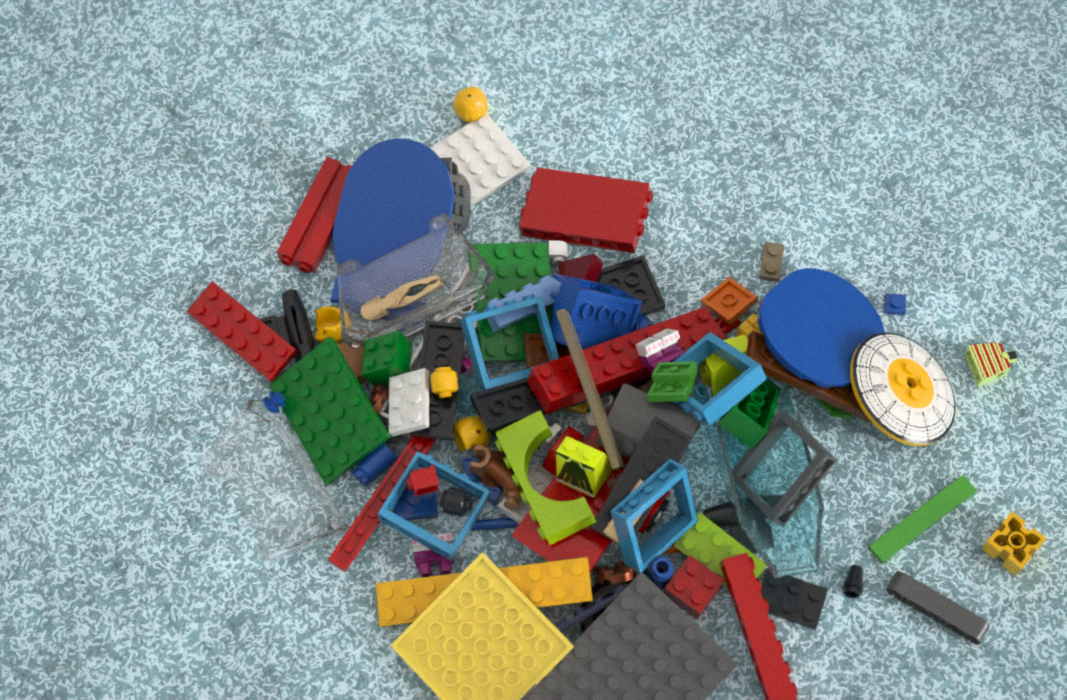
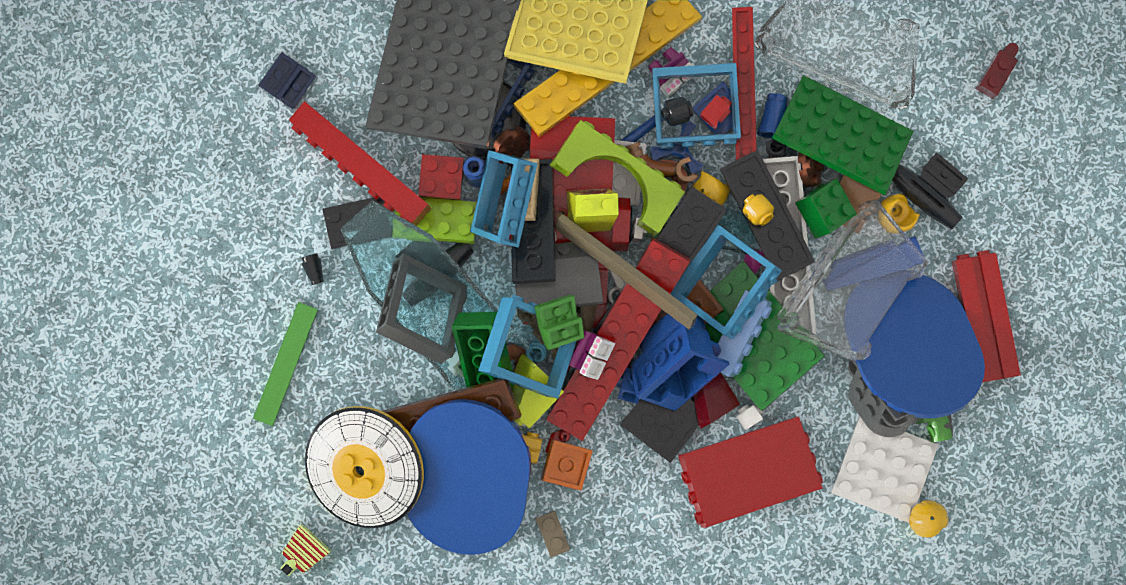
camera: 145 degrees right, 20 degrees up
(165, 387) = (998, 71): none -> dark red brick
(242, 331) = (972, 161): red plate -> none
(276, 399) = (895, 113): blue wheel -> none
(398, 298) = (851, 267): tan arm -> none
(409, 402) = (777, 176): white plate -> none
(895, 304) = (418, 560): blue plate -> none
(938, 607) = (232, 288): dark grey beam -> none
(1013, 531) = (189, 373): yellow brick -> none

